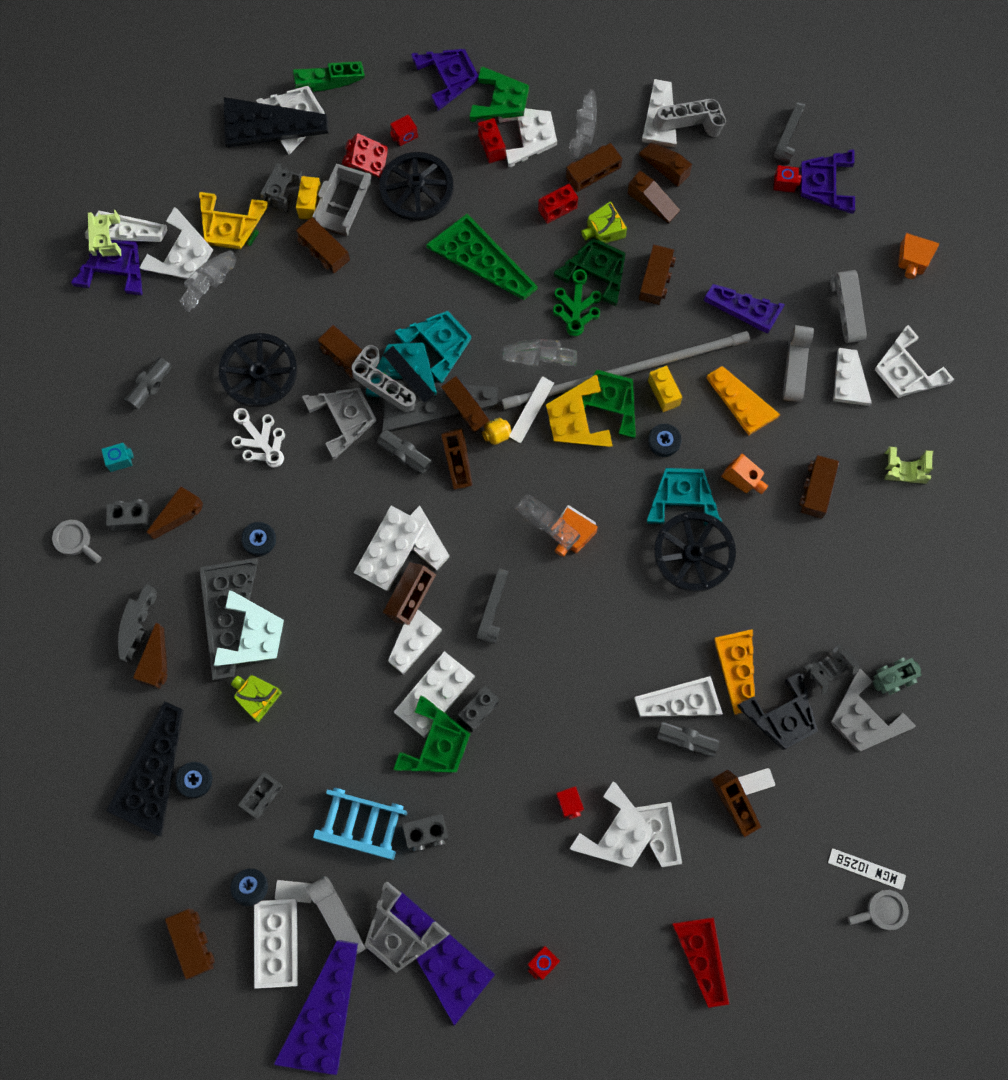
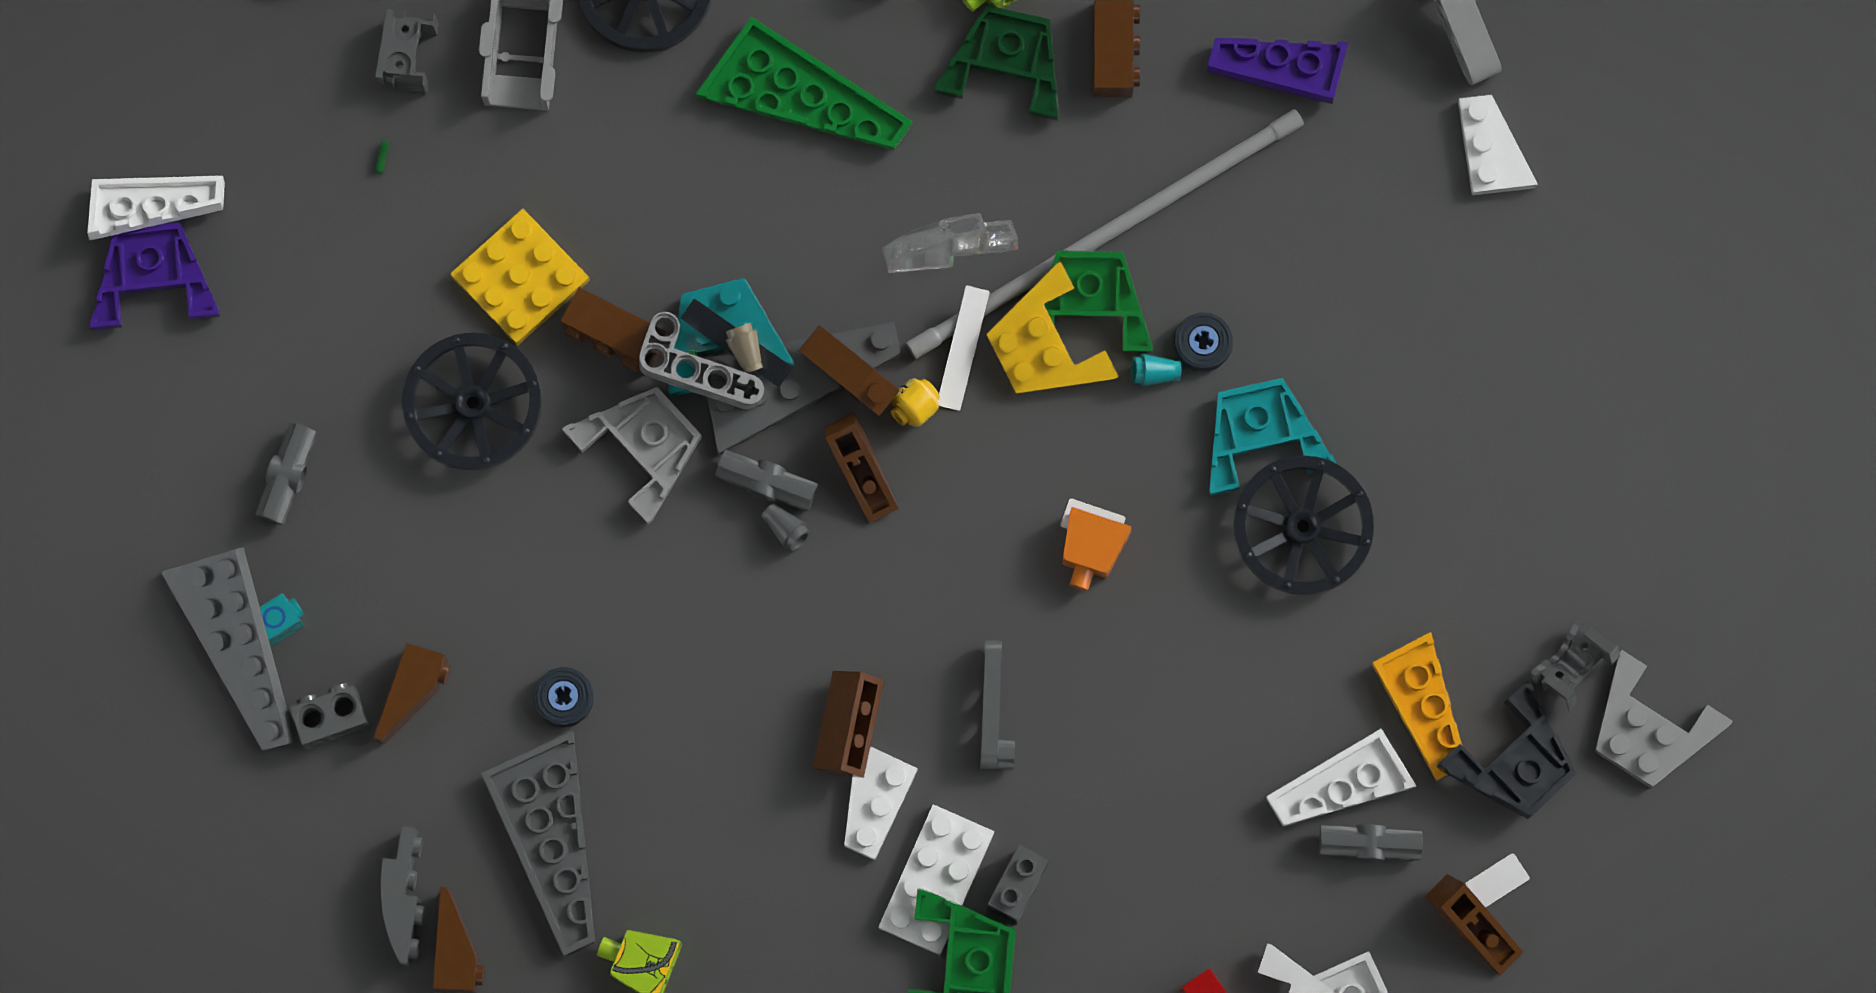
camera: 15 degrees left, 5 degrees up
(73, 538) = (246, 780): light grey piece -> none
(89, 447) = (228, 621): none -> dark grey wing
(99, 234) = (119, 226): yellowish green piece -> none
(186, 254) = (278, 223): white wing -> none
(210, 273) = (330, 246): clear slope -> none
(226, 228) = (331, 153): yellow wing -> none
(258, 637) = (616, 858): light aqua wing -> none
(260, 441) = (512, 524): white plant -> none
(305, 314) = (520, 277): none -> yellow plate
(308, 197) = (461, 59): yellow brick -> none
(322, 245) = (512, 142): reddish brown brick -> none
(389, 548) = (791, 655): white plate -> none
(408, 481) = (786, 527): none -> dark grey cone
(411, 375) = (745, 347): none -> dark tan cone
(428, 543) = (841, 623): white wing -> none
(444, 336) = (776, 254): teal wing -> none
(547, 521) = (1045, 539): clear slope -> none
(576, 306) = (989, 139): green plant -> none
(633, 448) = (1154, 370): none -> teal cone
(665, 388) = (1181, 251): yellow brick -> none
(743, 403) = (1322, 241): light orange wing -> none
(745, 475) = (1343, 369): orange torso -> none
(796, 363) = (1394, 148): light grey beam -> none
(818, 486) = (1482, 356): reddish brown brick -> none
(867, 869) = (1706, 972): white sticker -> none
(892, 678) = (1674, 655): sand green brick -> none
(902, 371) = (1577, 114): white wing -> none
(908, 471) = (1624, 286): yellowish green piece -> none

